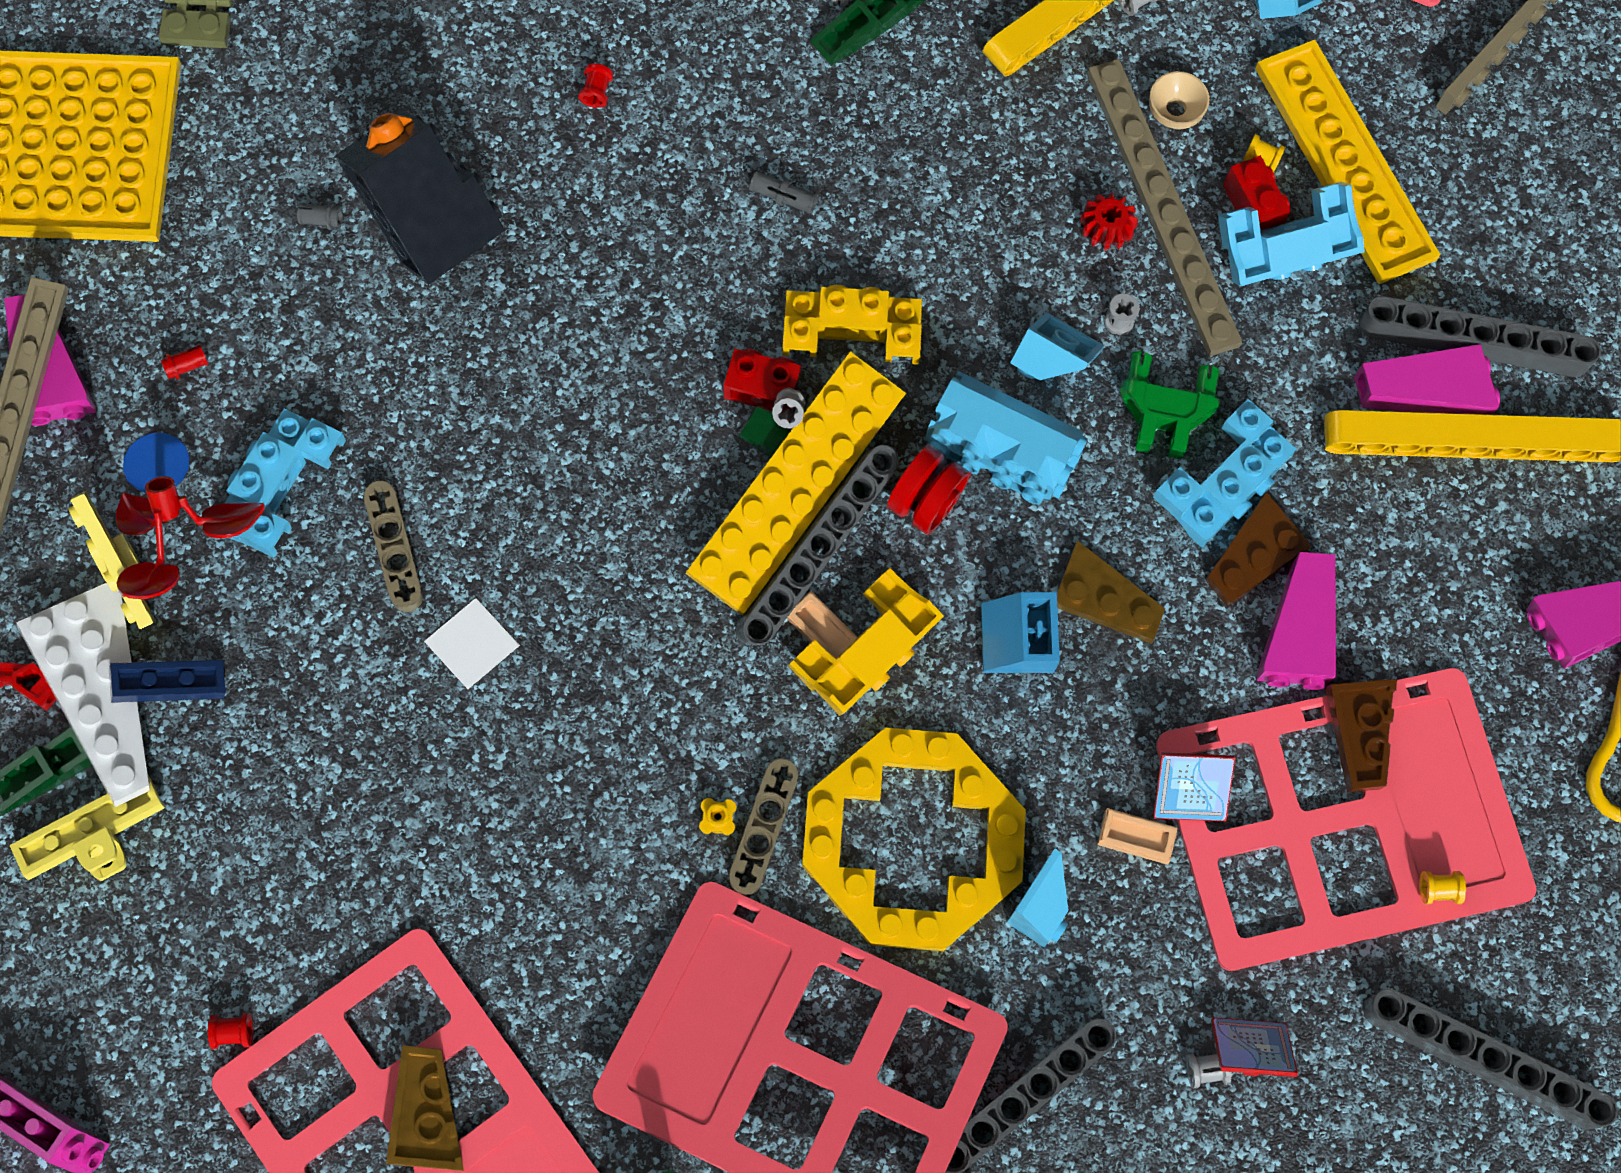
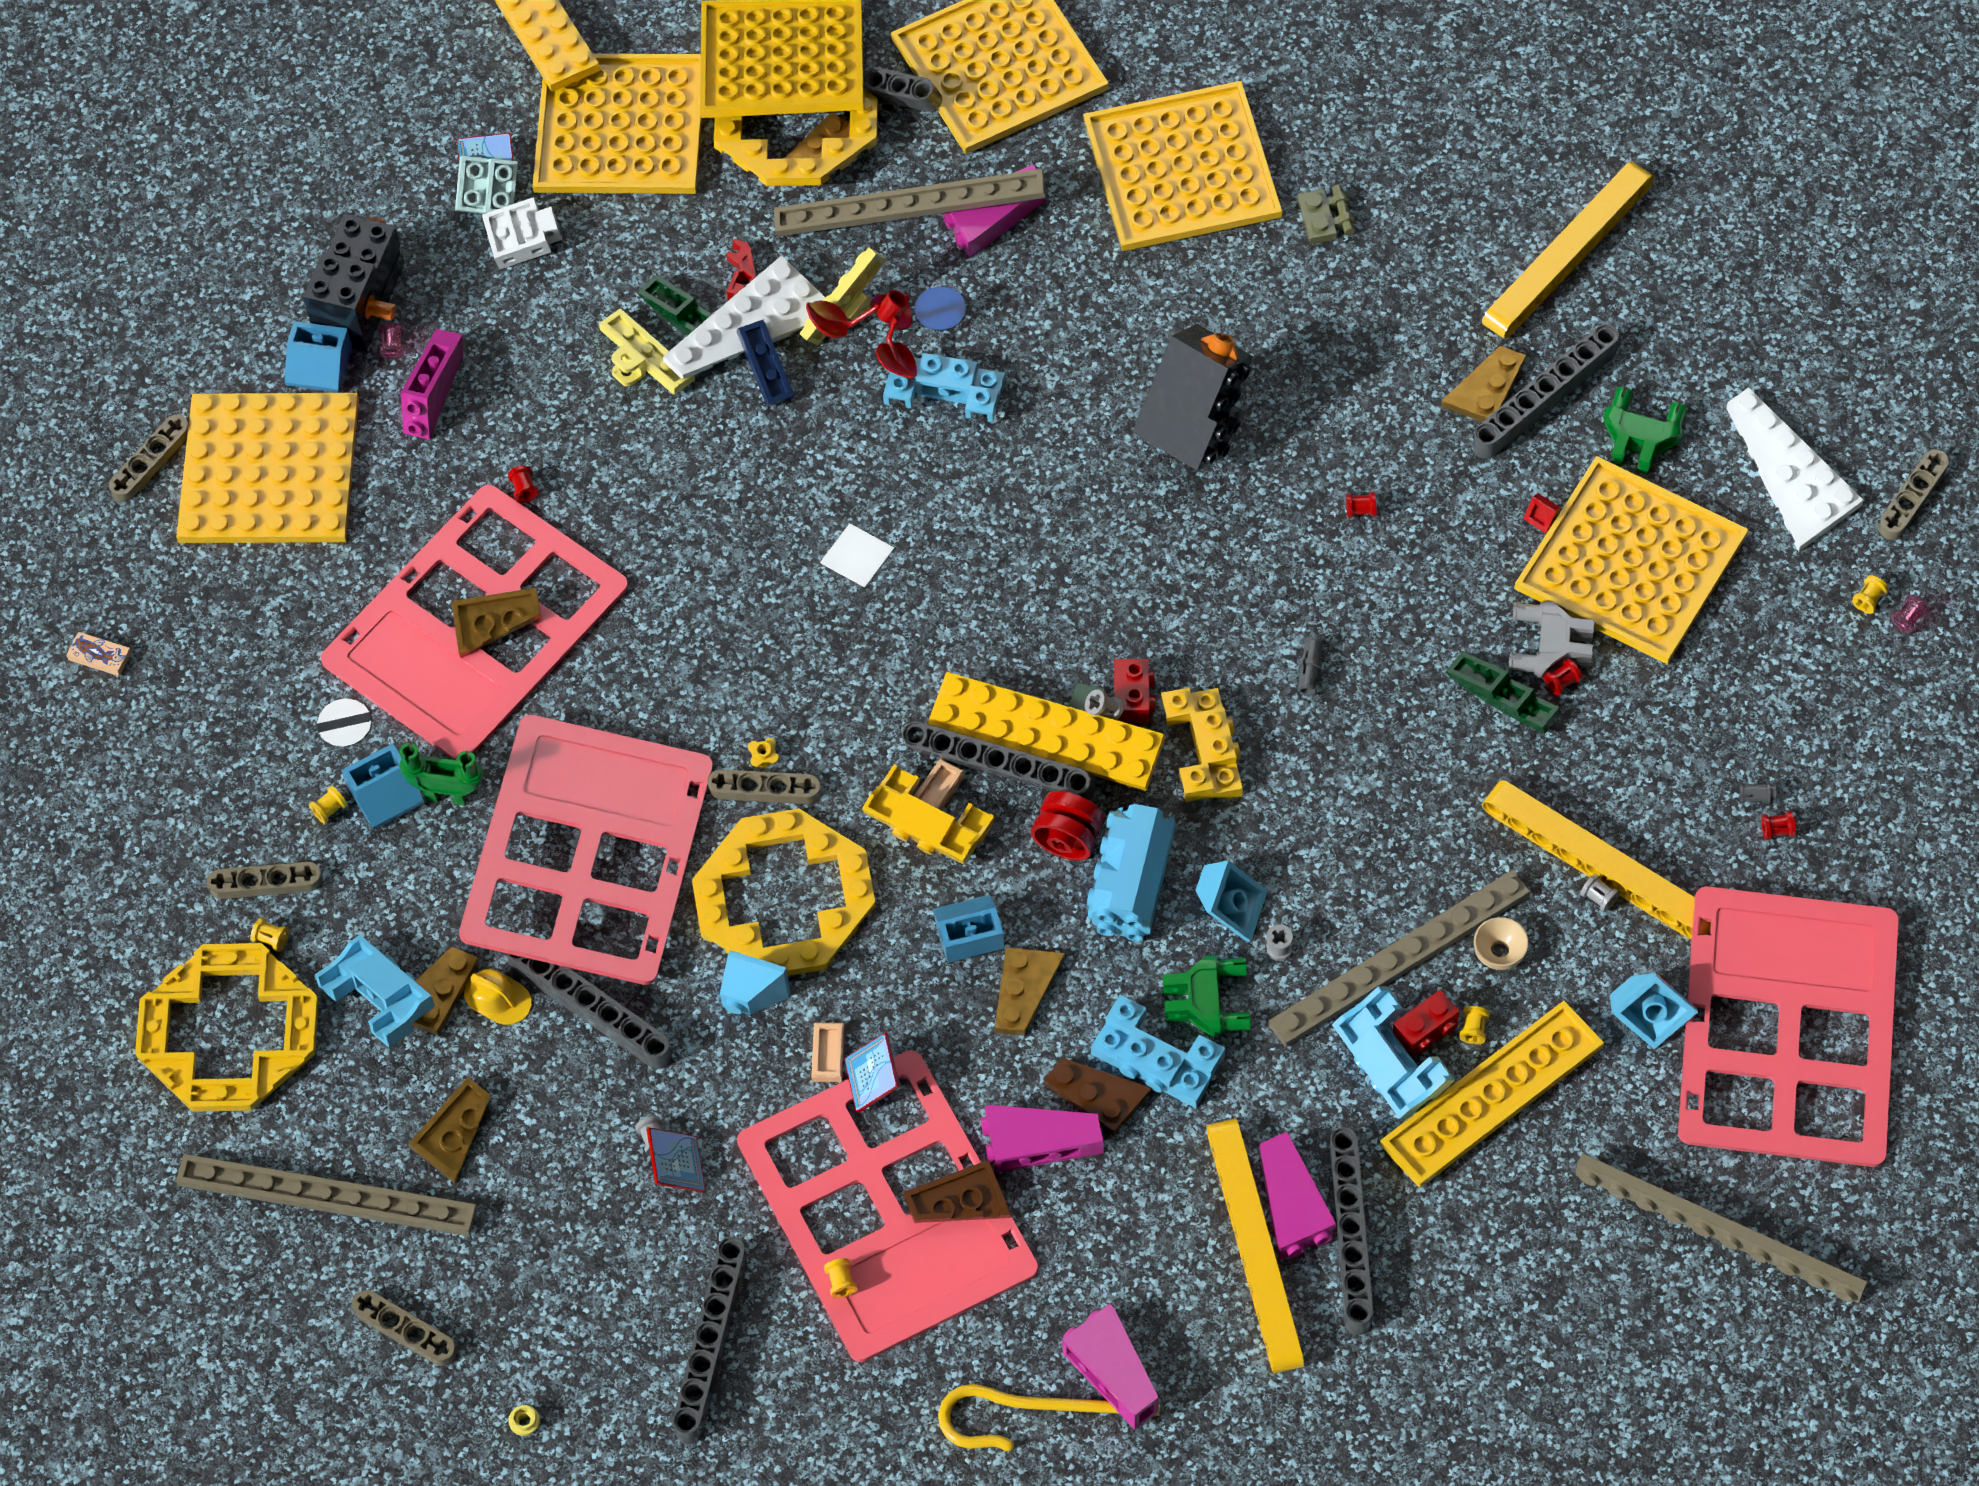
camera: 85 degrees right, 10 degrees down
(184, 362) = (1020, 293): red pin -> none
(390, 546) = (915, 476): dark tan beam -> none
(1112, 210) = (1375, 918): red gear -> none

